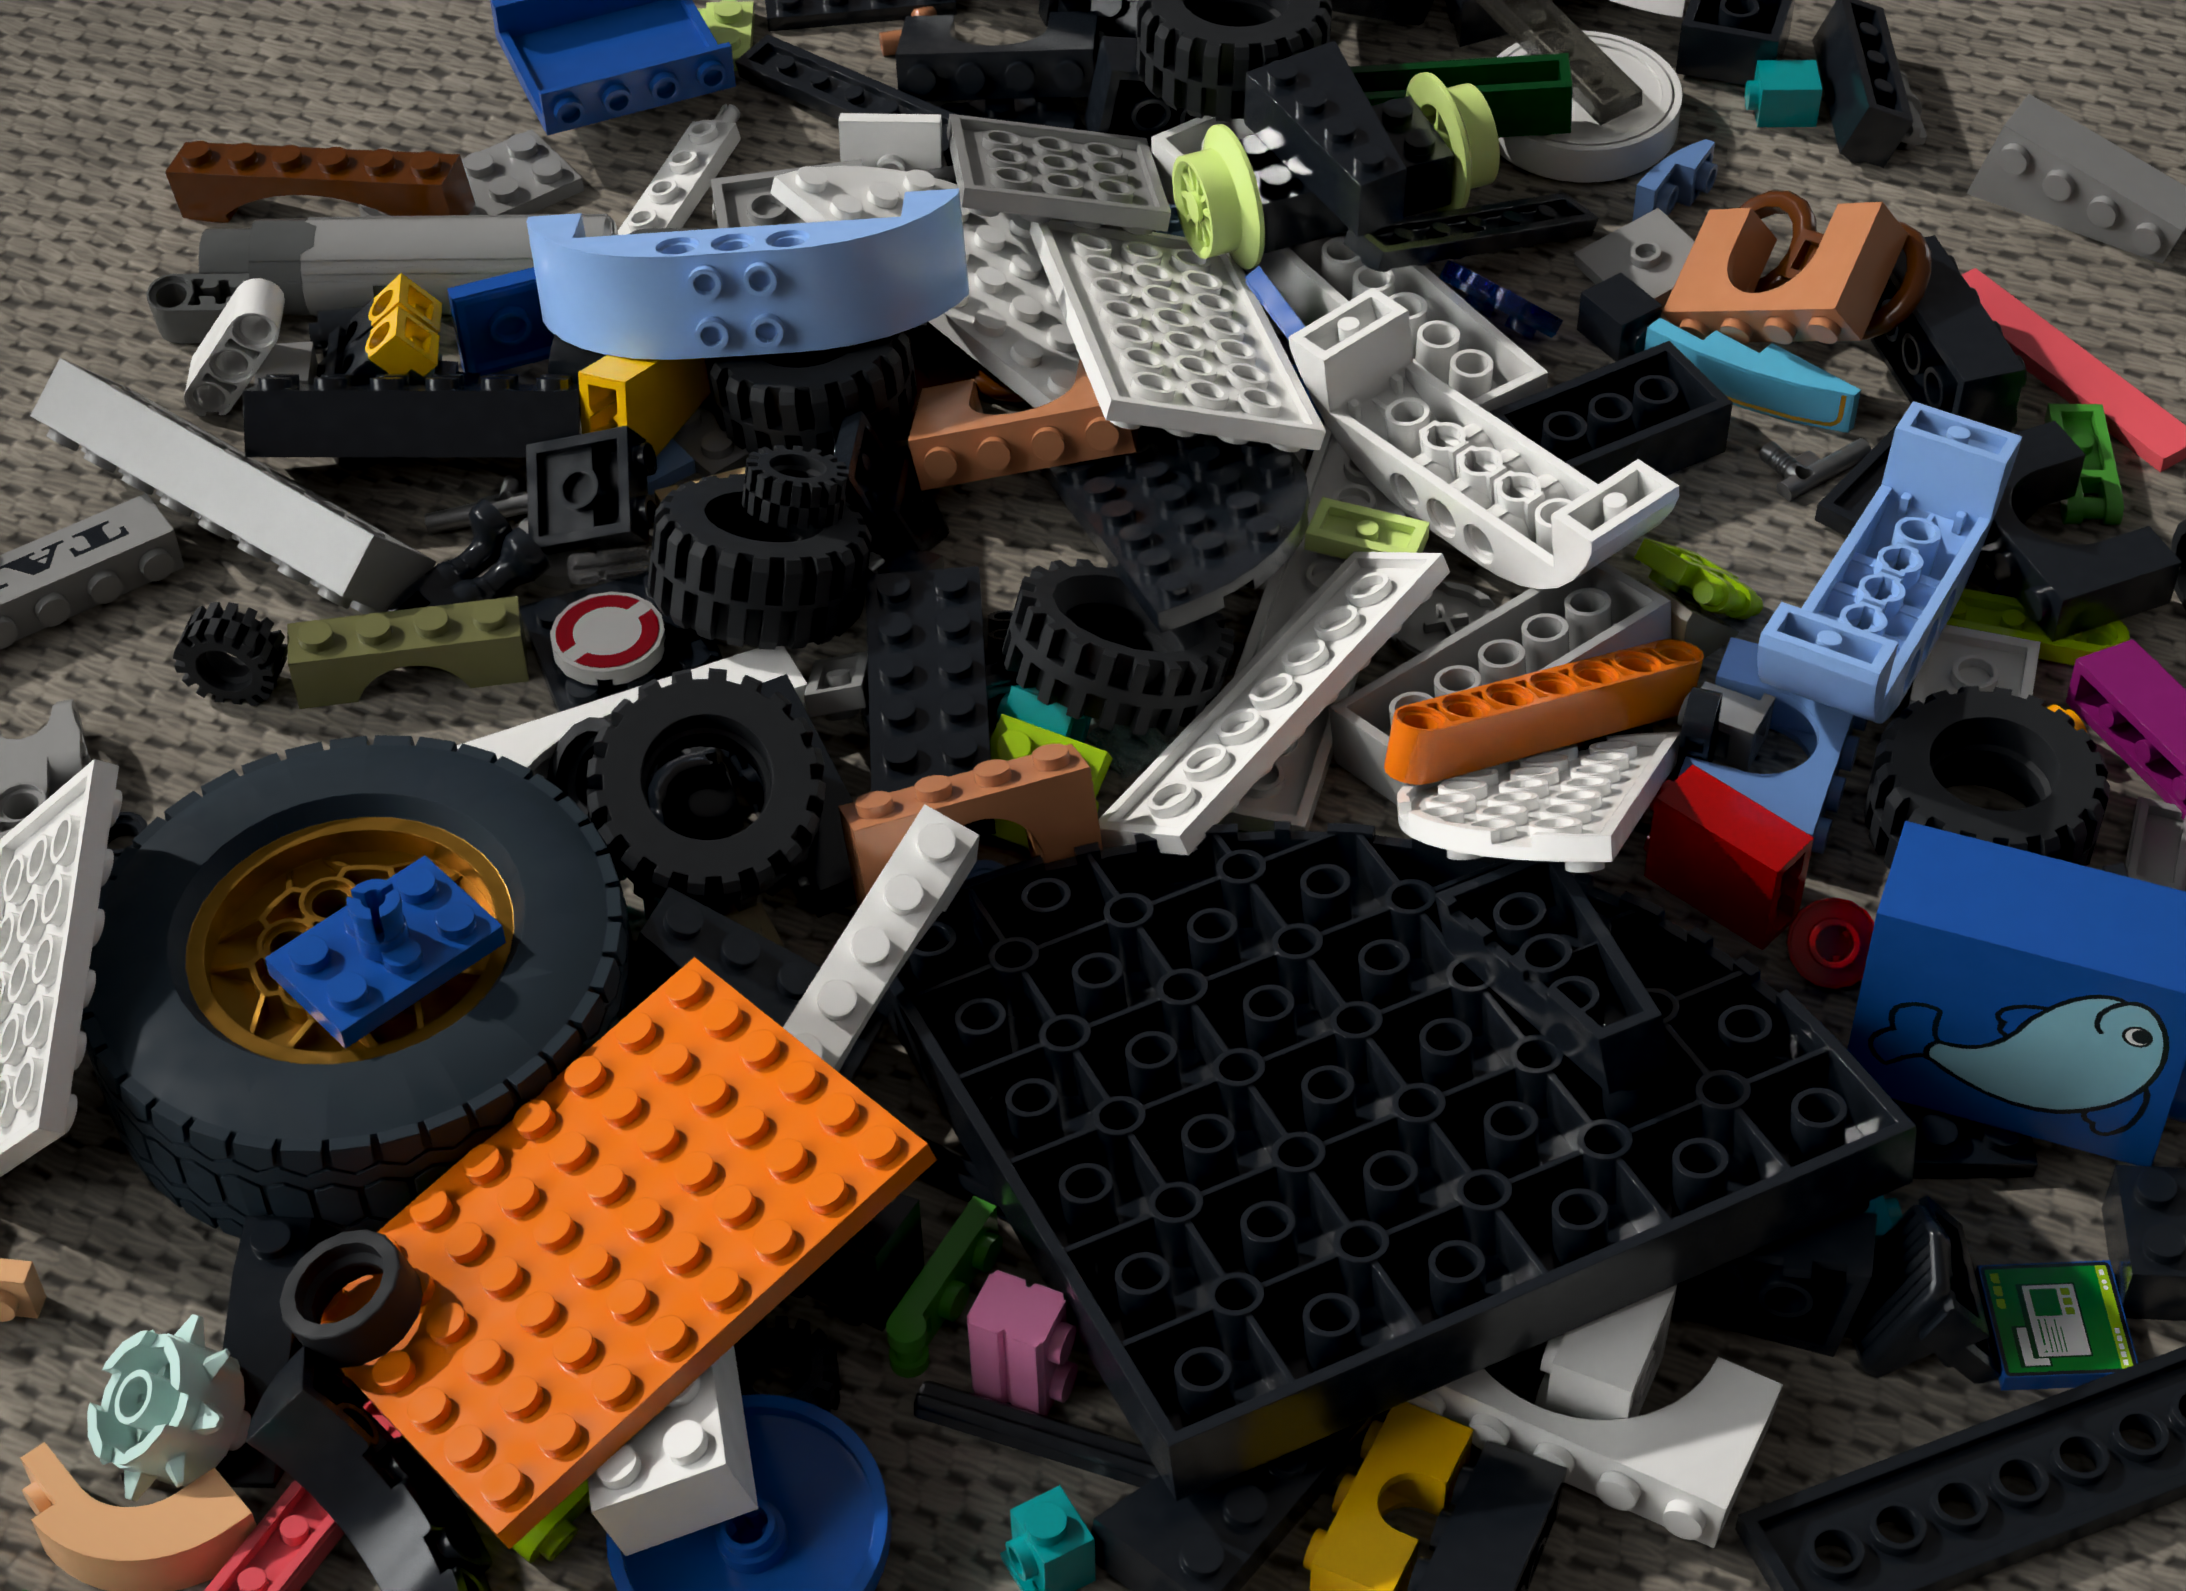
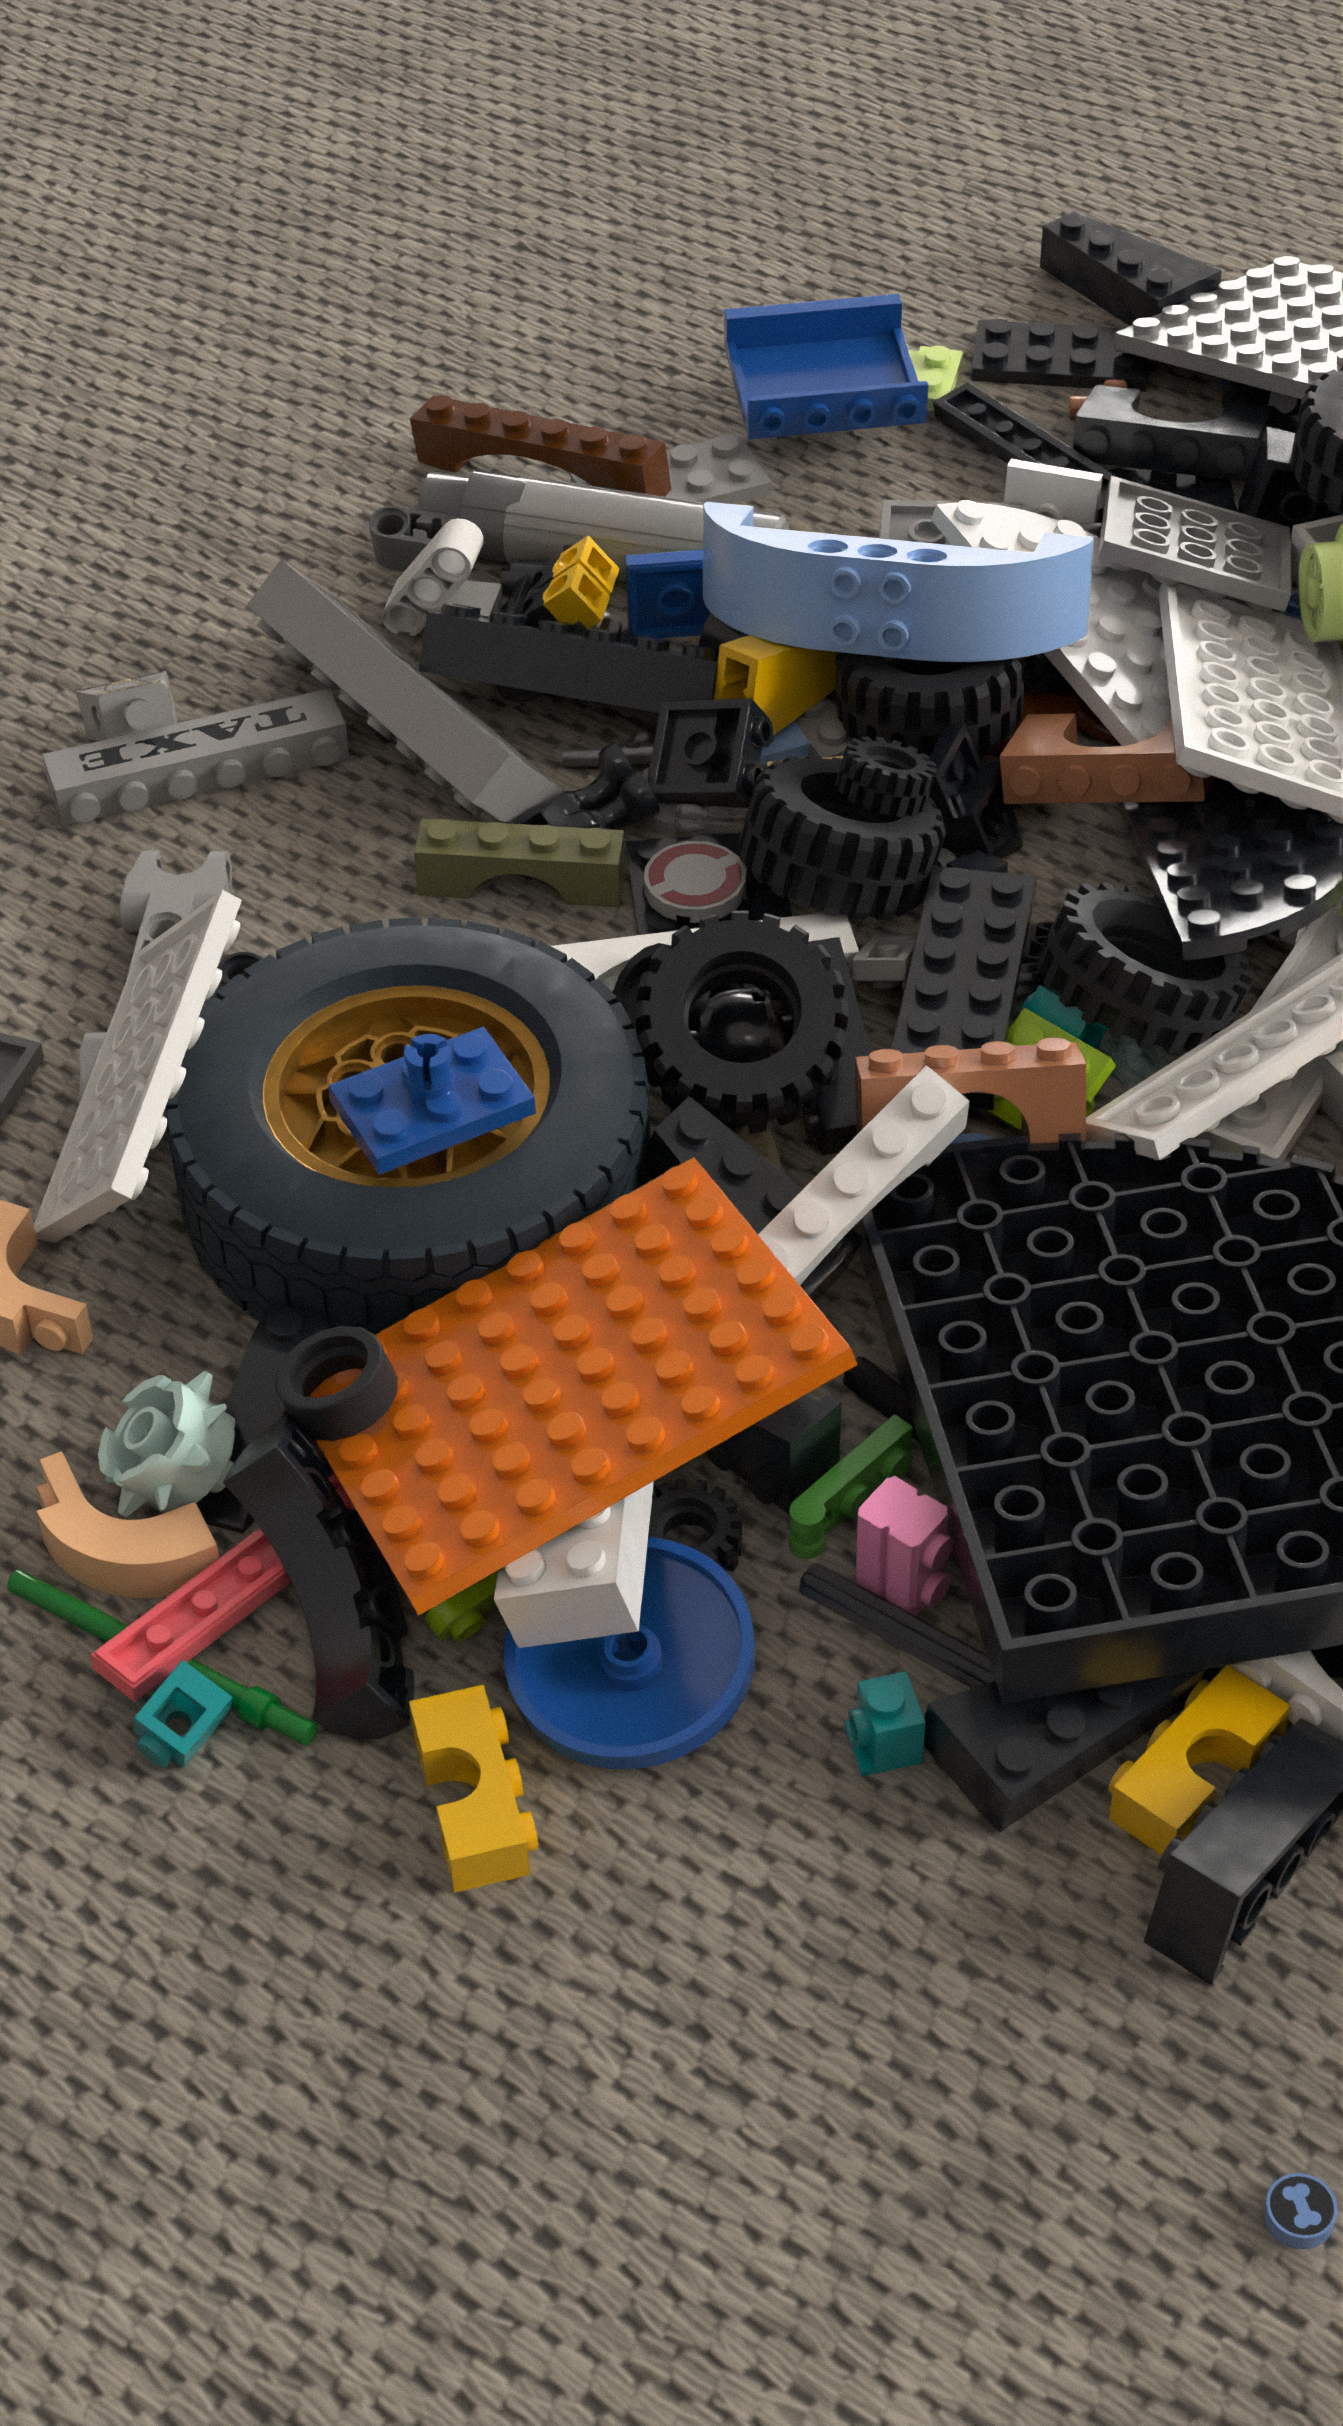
camera: 15 degrees right, 0 degrees up
(205, 659) = (369, 815): black tyre -> none
(686, 173) = (863, 493): white plate -> none

